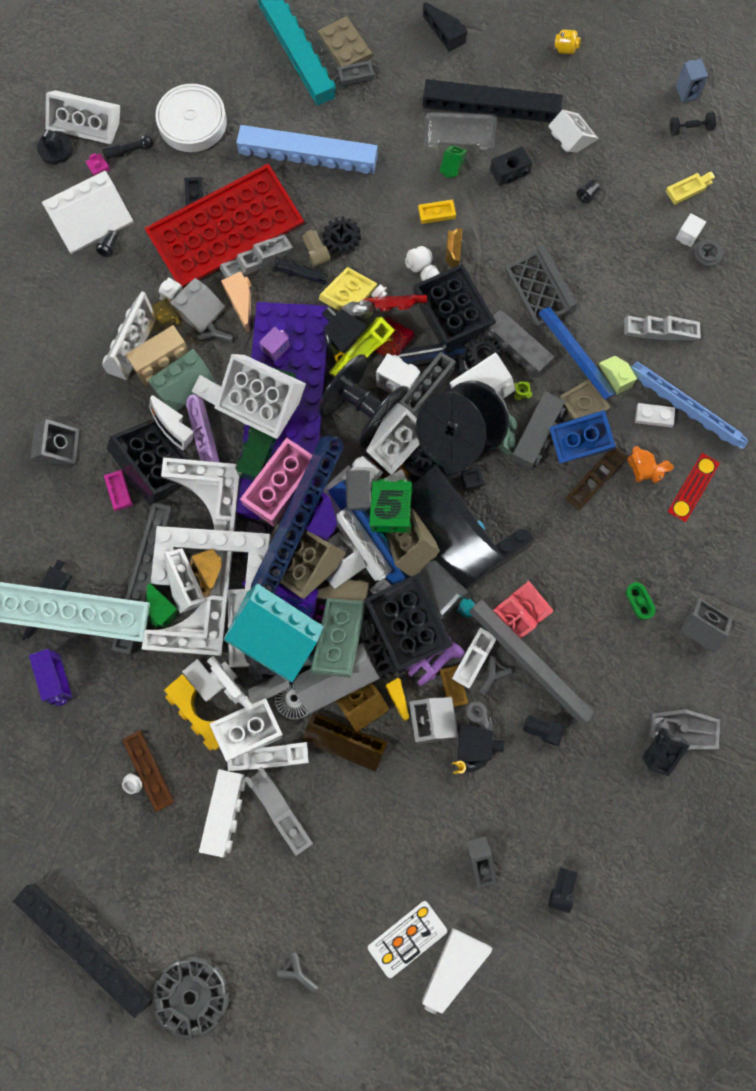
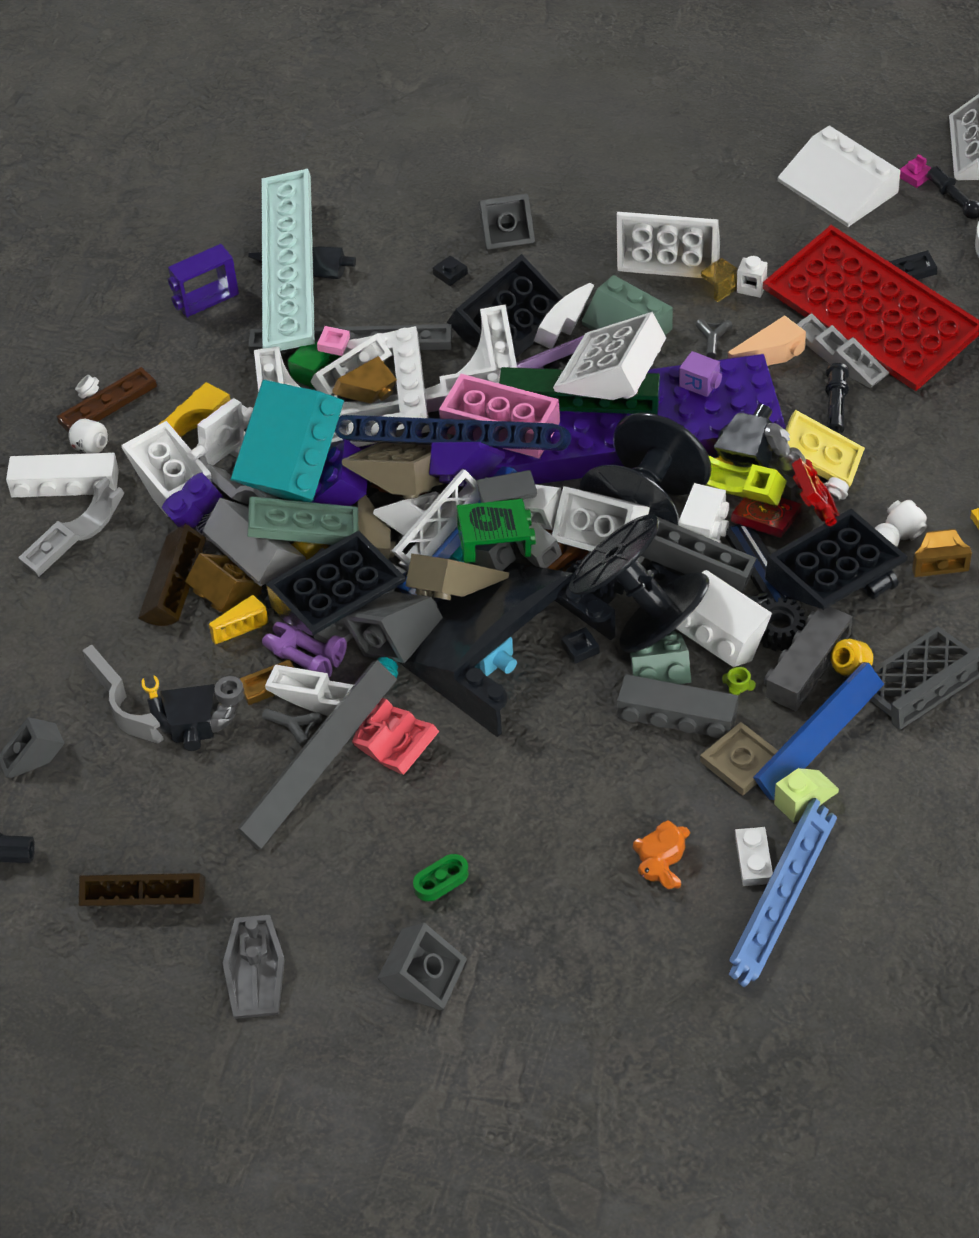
camera: 80 degrees right, 25 degrees down
(54, 147) = (924, 127): black tile -> none
(90, 494) = (450, 270): none -> black plate
(106, 244) = (802, 205): black cone -> none
(118, 490) = (458, 292): dark pink plate -> none
(156, 587) = (333, 340): none -> bright pink plate
(157, 353) = (655, 275): tan brick -> none
(187, 789) = (88, 436): none -> white head
(197, 305) = (742, 304): light grey slope -> none
(271, 757) = (138, 504): white slope -> none
(284, 716) = (192, 502): none -> dark purple brick
(317, 252) = (874, 410): dark tan piece -> none
(334, 231) = (909, 430): black gear -> none
(433, 720) = (214, 653): light grey slope -> none
(480, 775) = (136, 725): none -> light grey piece
(526, 319) = (849, 655): none -> yellow head
(549, 731) = (223, 794): black piece -> none
(582, 437) = (678, 754): blue slope -> none
(596, 478) = (618, 791): dark brown slope -> none
(616, 796) = (141, 889): none -> dark brown brick
(662, 329) = (907, 841): light grey slope -> none
(665, 752) = (210, 932): black bracket -> none
(693, 487) = (649, 929): sticker -> none

